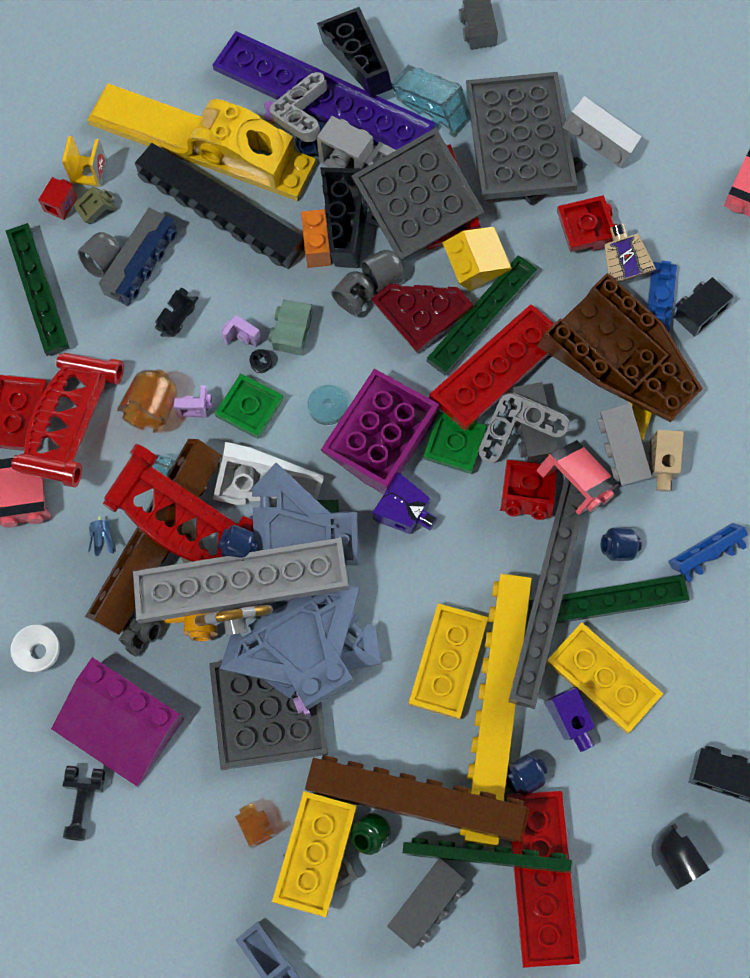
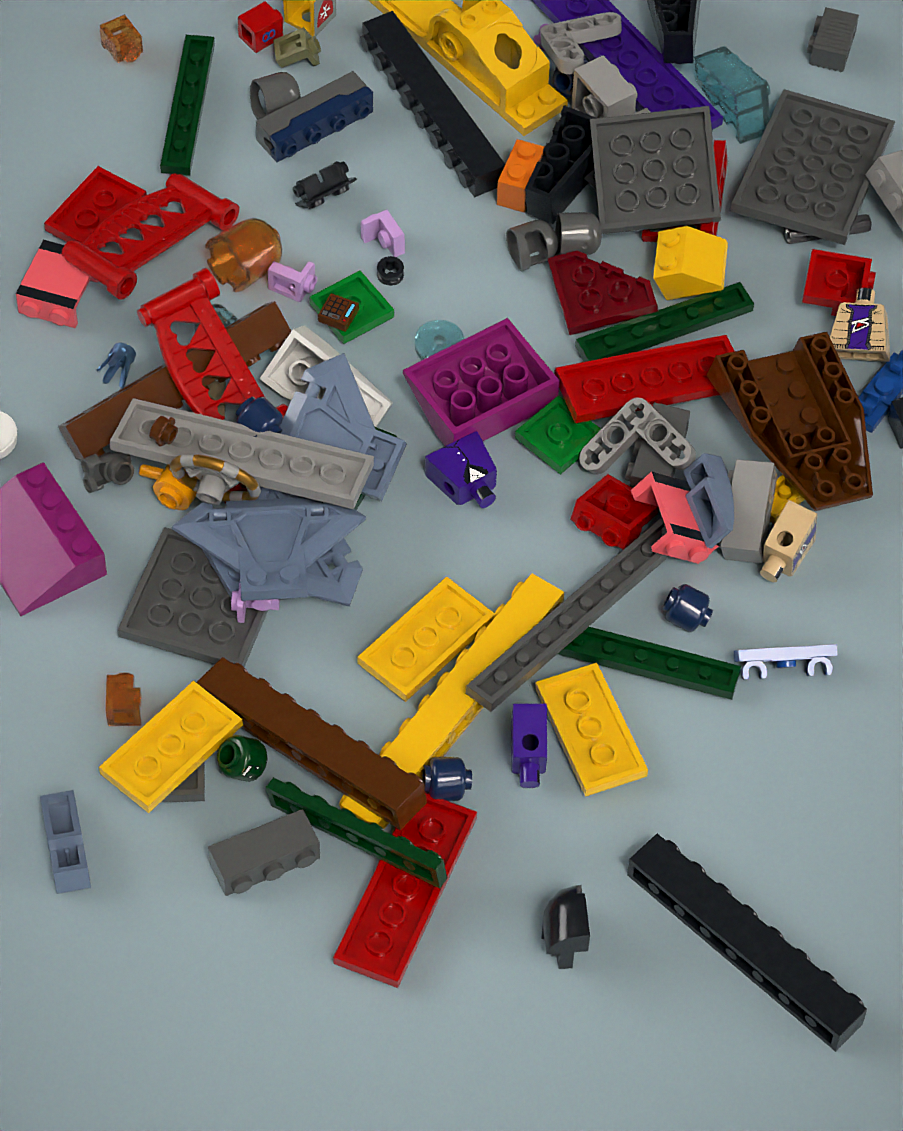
camera: 20 degrees right, 15 degrees down
(174, 594) = (163, 430): none -> reddish brown plate
(244, 418) = (338, 312): none -> reddish brown tile
(291, 327) = (443, 250): sand green brick -> none
(598, 452) = (710, 498): none -> sand blue slope

